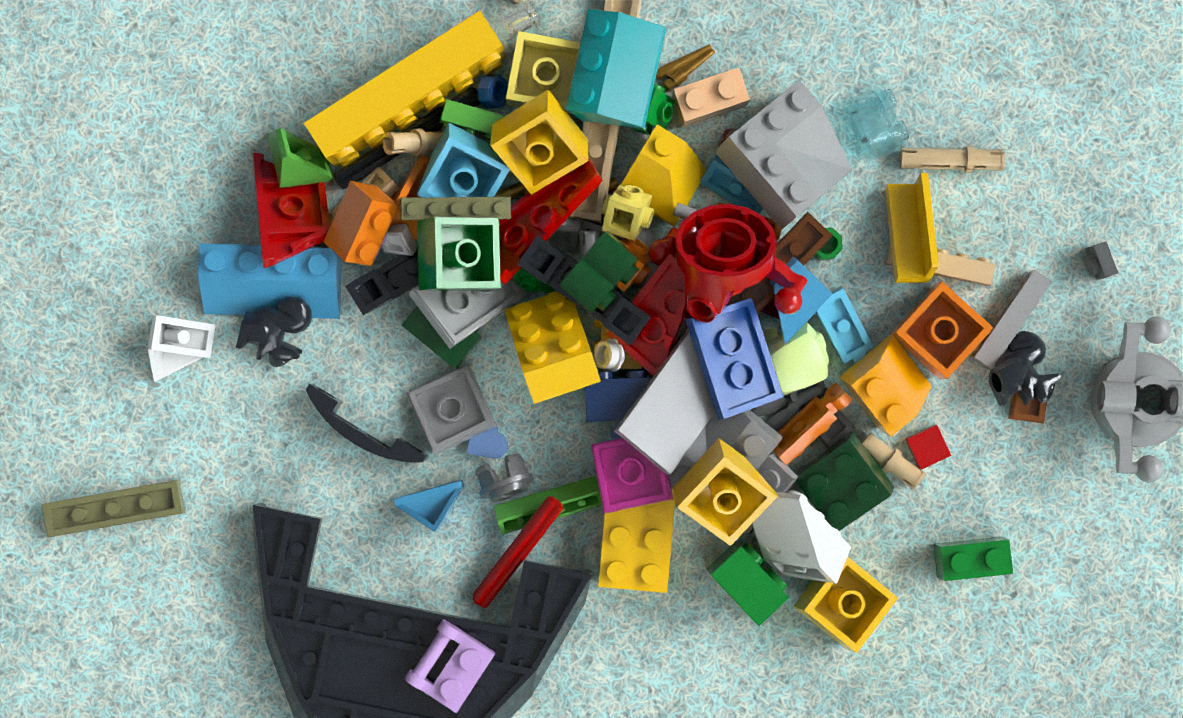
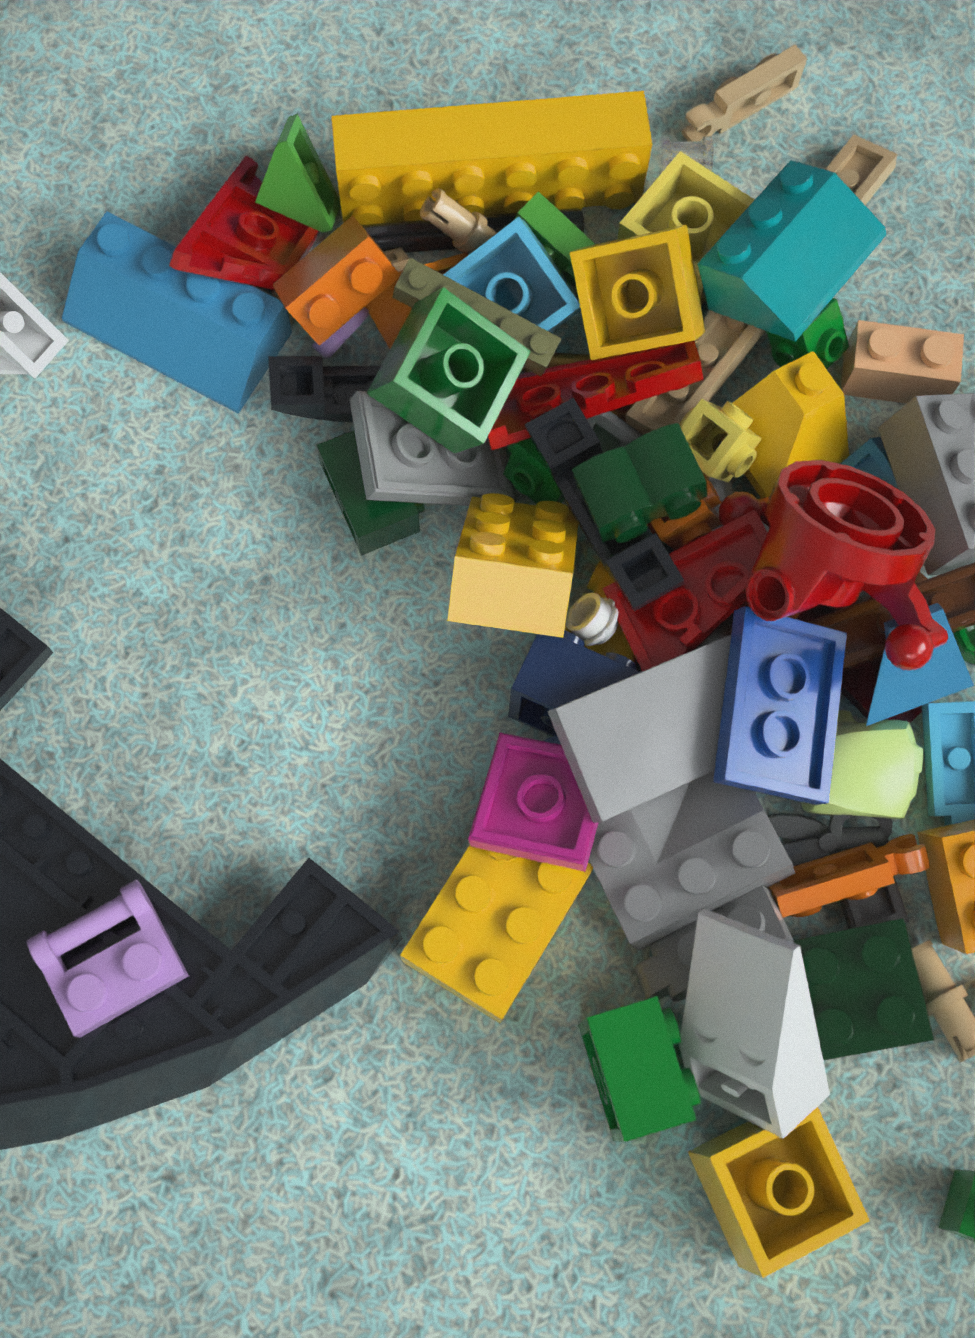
camera: 25 degrees right, 15 degrees down
(268, 326) = (133, 368): black animal -> none
(328, 405) = (154, 516): black slope -> none
(399, 240) = (373, 341): white tile -> none
(431, 505) = (225, 714): dark azure slope -> none
(451, 409) = (322, 601): light grey tile -> none
(488, 444) = (349, 669): medium blue tile -> none
(492, 91) = (602, 219): blue tile -> none
(503, 489) = (361, 733): flat silver piece -> none
(517, 551) = (308, 843): red axle -> none
(573, 496) = (387, 803): bright green piece -> none
(680, 69) = (882, 314): pearl gold piece -> none
(723, 492) = (672, 893): yellow slope -> none

